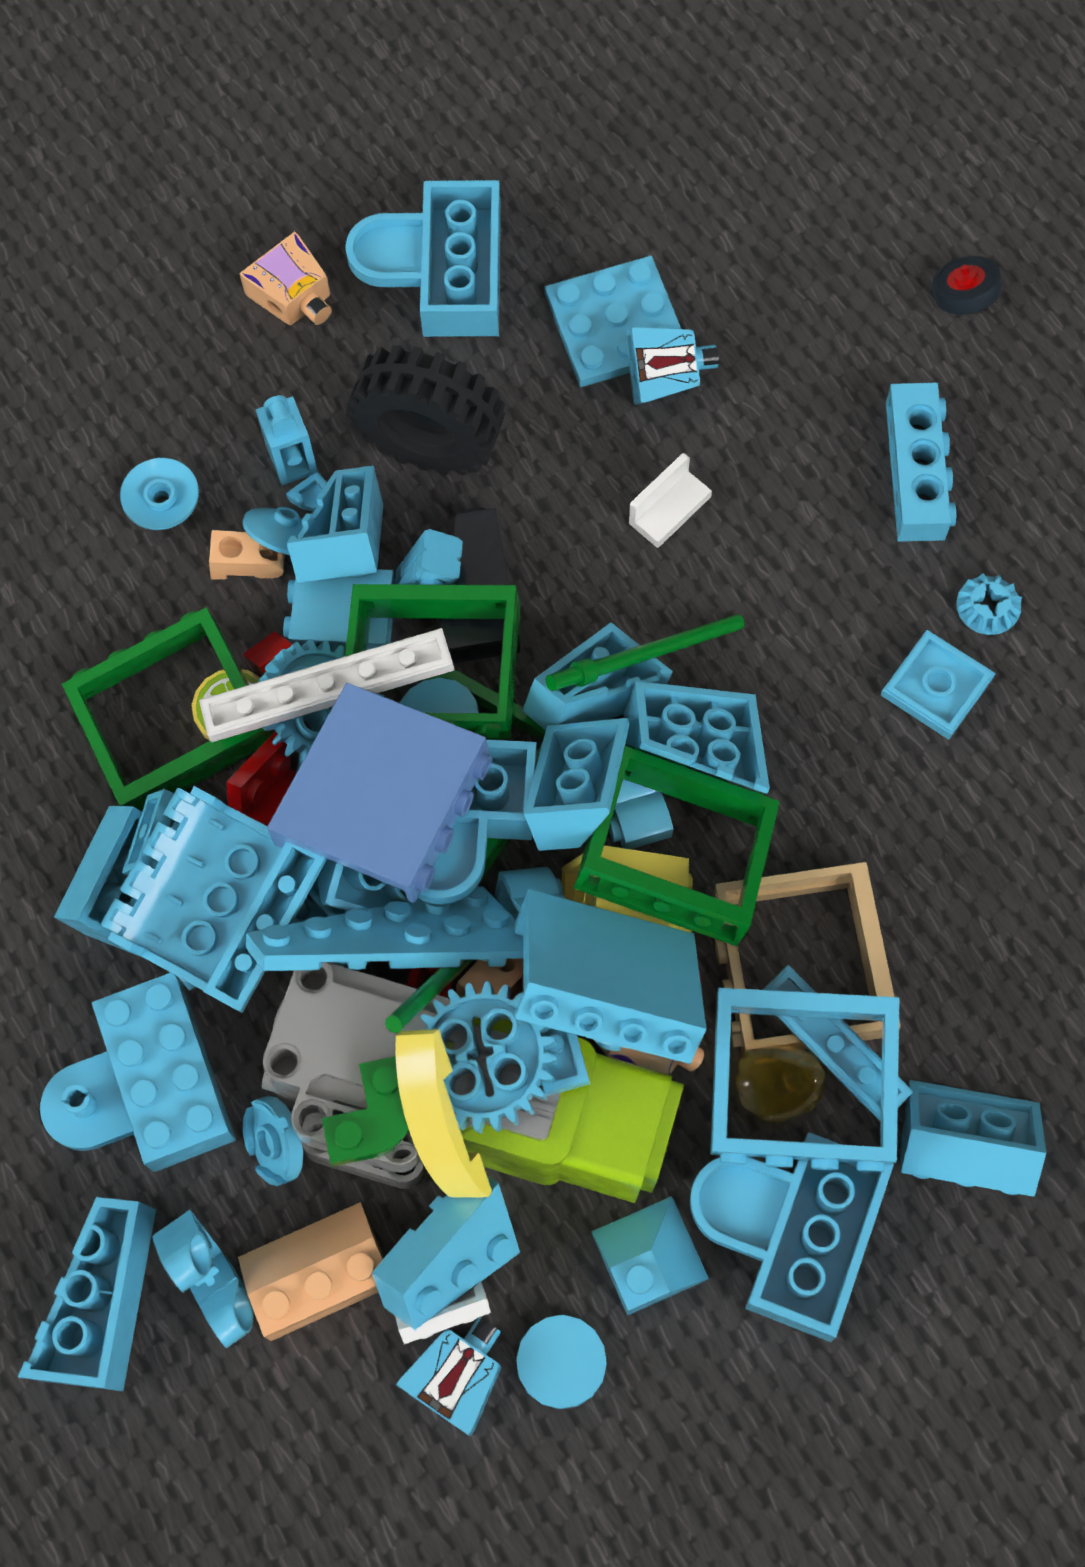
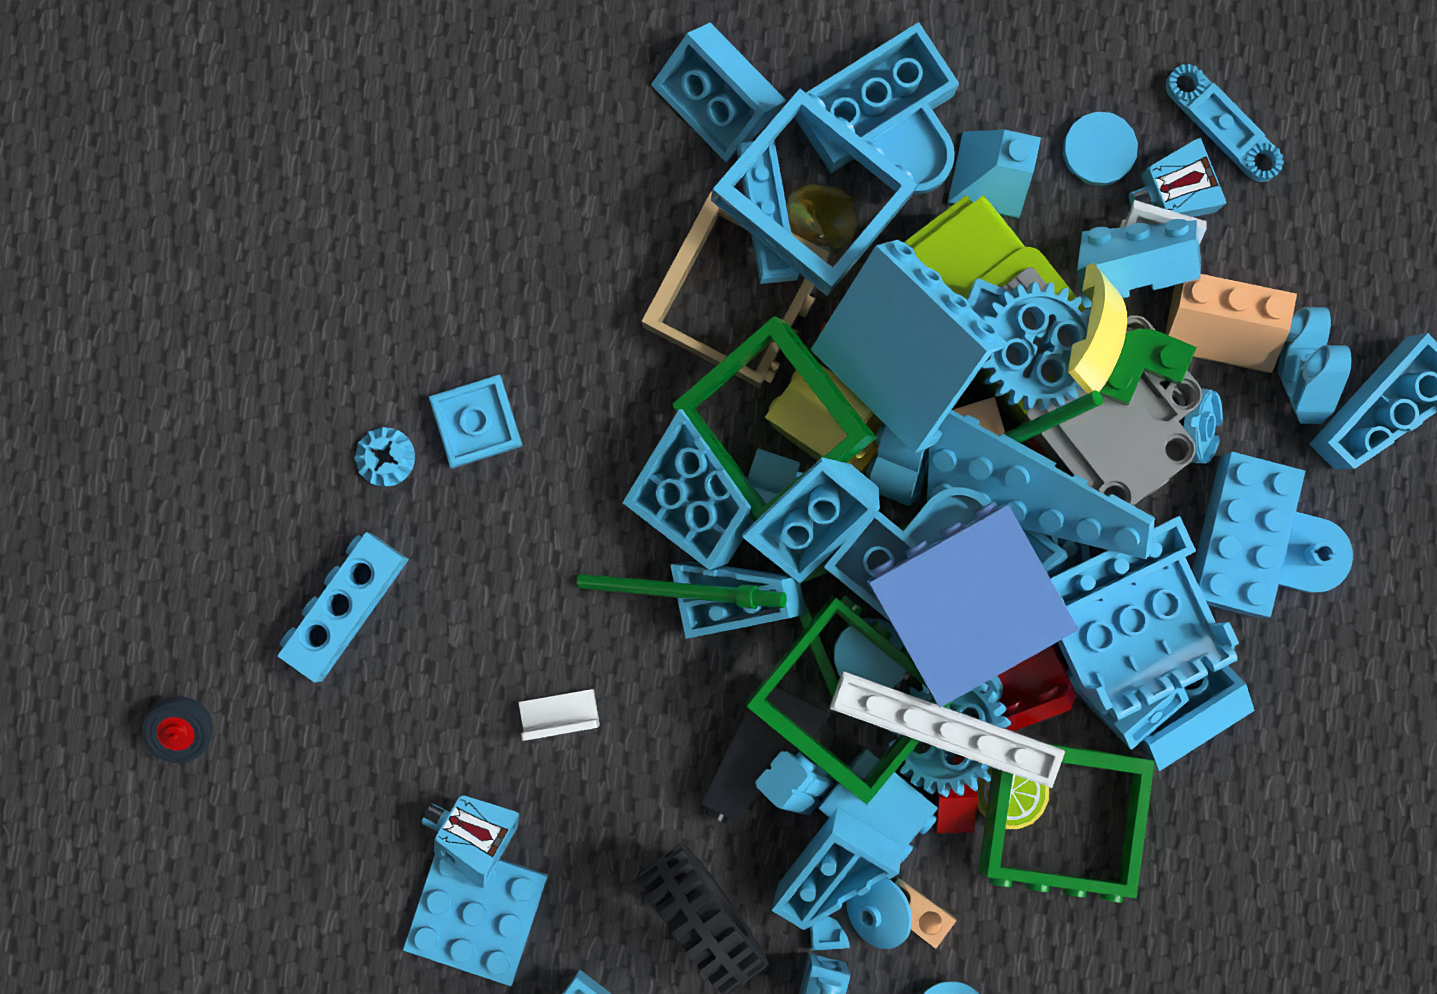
camera: 145 degrees left, 15 degrees up
(454, 1482) = (1224, 123): none -> medium azure plate

